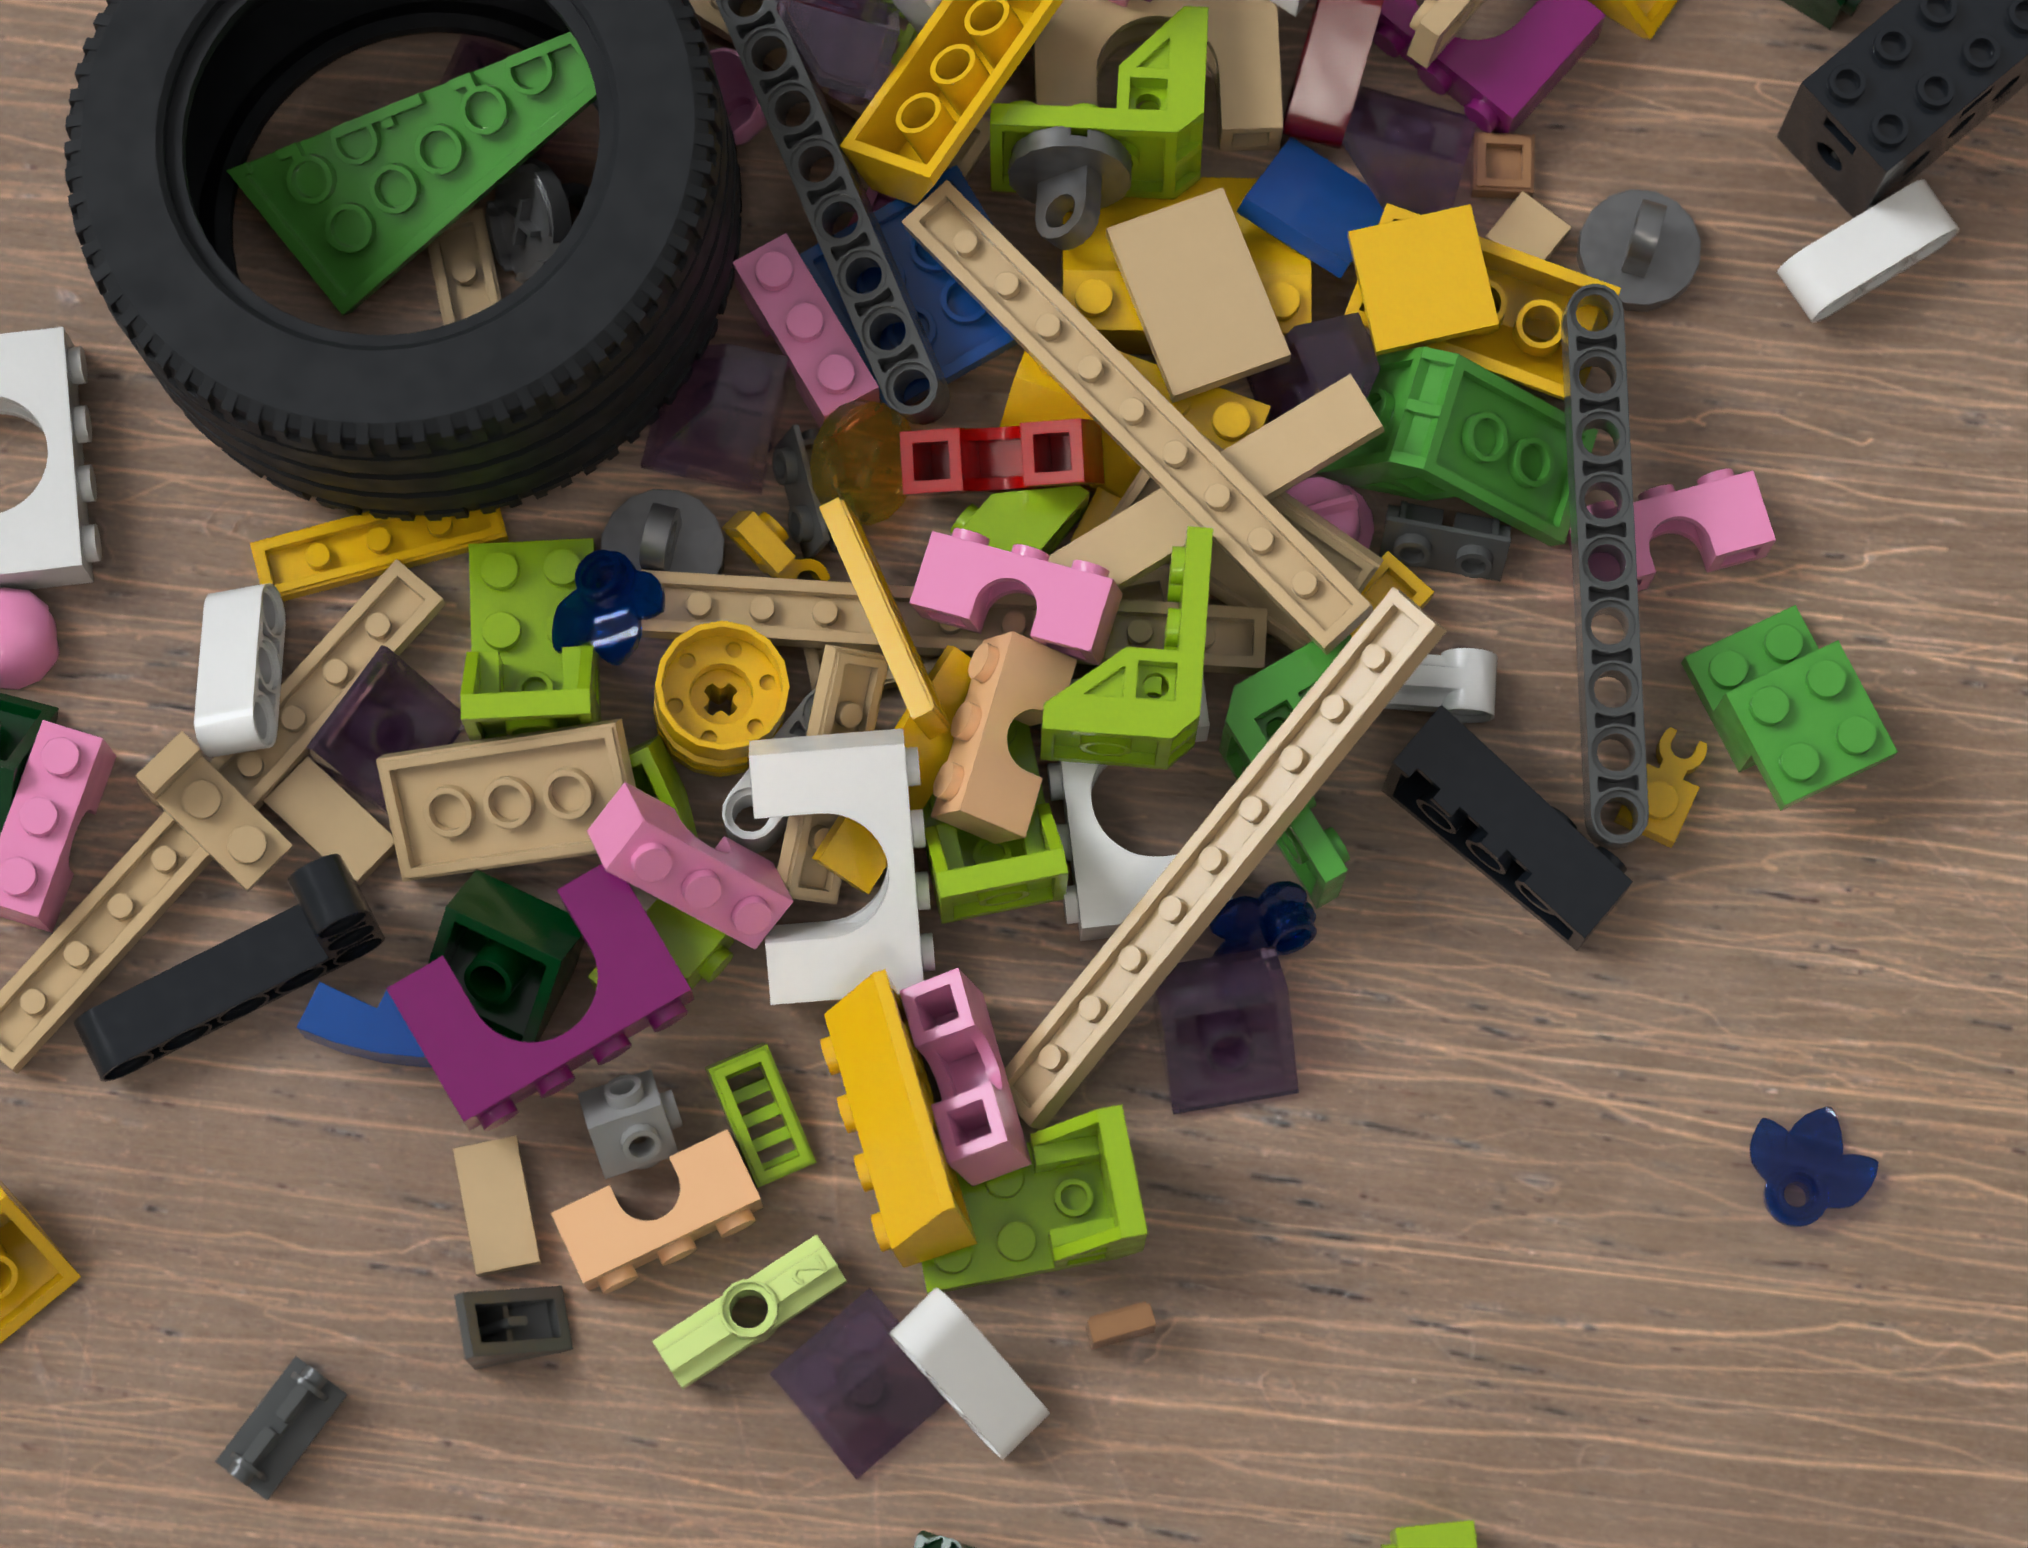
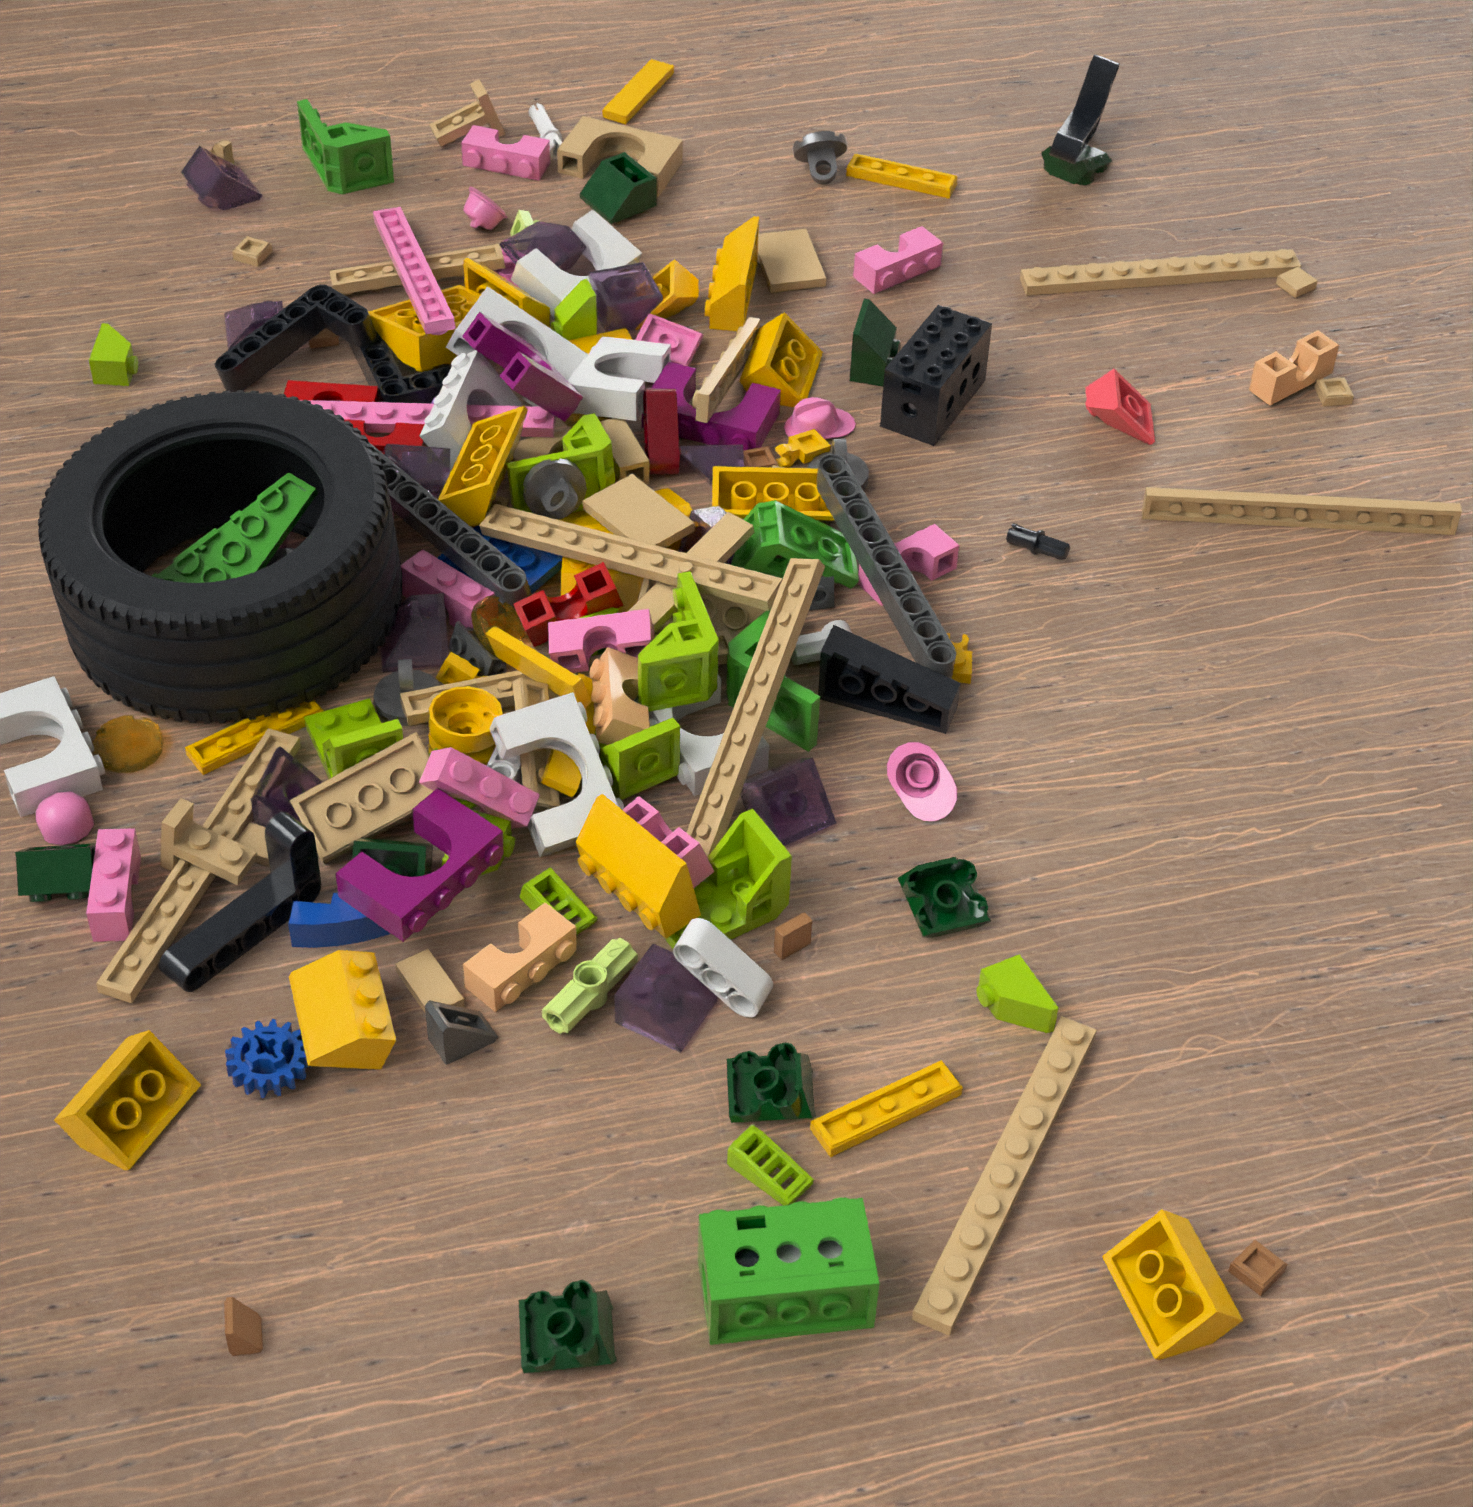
camera: 20 degrees left, 30 degrees down
(159, 497) = (128, 744): none -> clear yellow tile
(220, 1264) = (267, 1058): none -> blue gear
(240, 670) = (200, 786): white beam -> none
(281, 1428) = (346, 1115): dark grey hinge -> none
(330, 1234) = (343, 1011): none -> yellow slope
(608, 612) = (391, 705): clear blue plate -> none
(630, 1123) = (489, 920): light grey brick -> none
(1275, 918) = (785, 744): clear blue plate -> none
(1311, 206) = (679, 487): blue tile -> none
(1411, 1330) = (944, 897): none -> dark green slope
(1423, 279) = (744, 482): yellow tile -> none
(1475, 1074) = (922, 781): none -> bright pink piece
(1602, 163) = (803, 447): none -> yellow plate
(1660, 97) = (821, 416): none -> bright pink piece
(1789, 707) = (998, 604): bright green bracket -> none
(1812, 1160) = (1105, 782): clear blue plate -> none
(1868, 250) = (943, 447): white beam -> none
(1940, 558) = (1037, 542): none -> black axle

